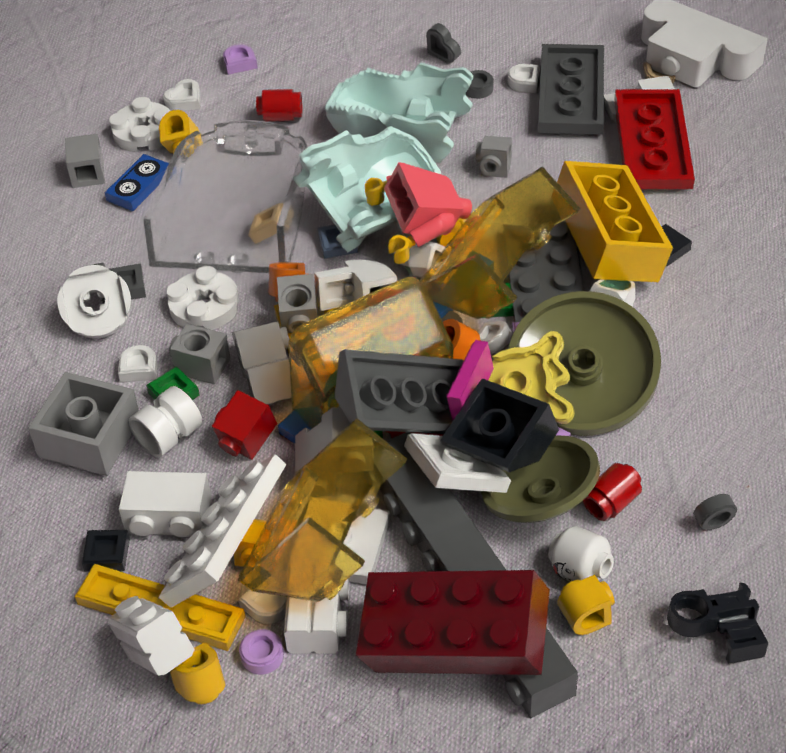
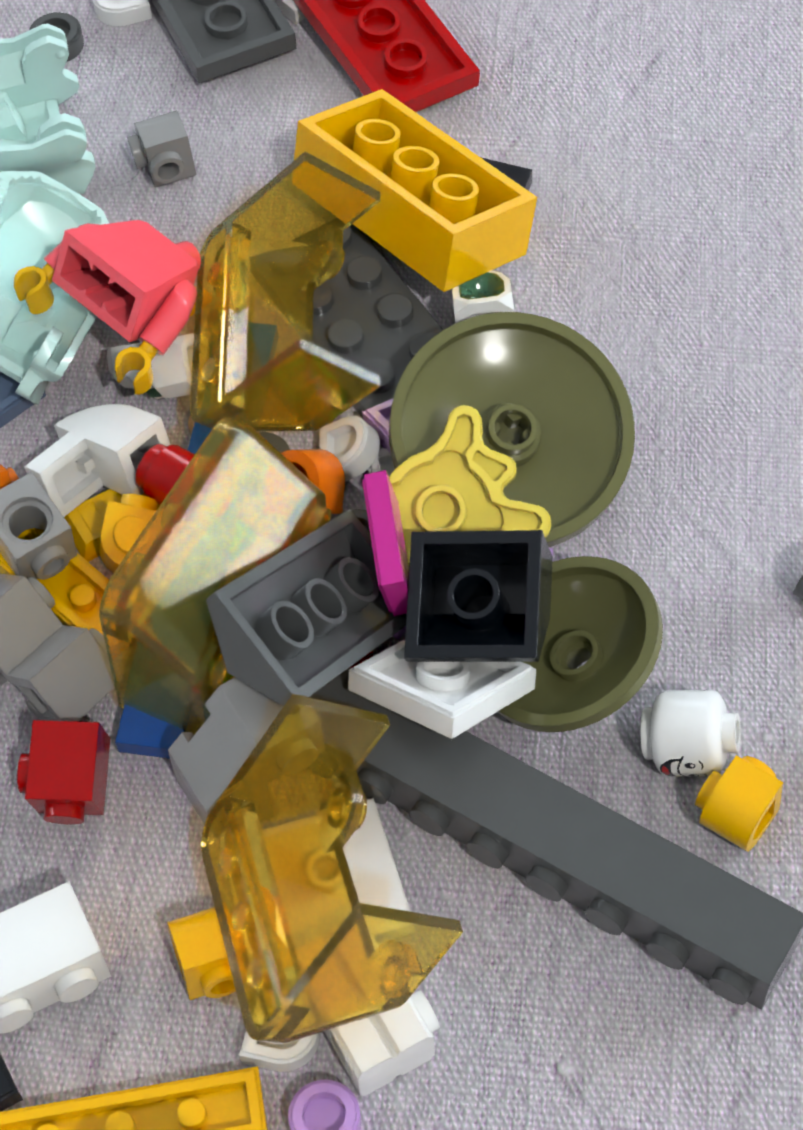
camera: 30 degrees left, 10 degrees up
(222, 531) = (162, 967): white plate -> none
(454, 622) = (602, 935): dark red brick -> none
(613, 491) = (680, 603): red brick -> none

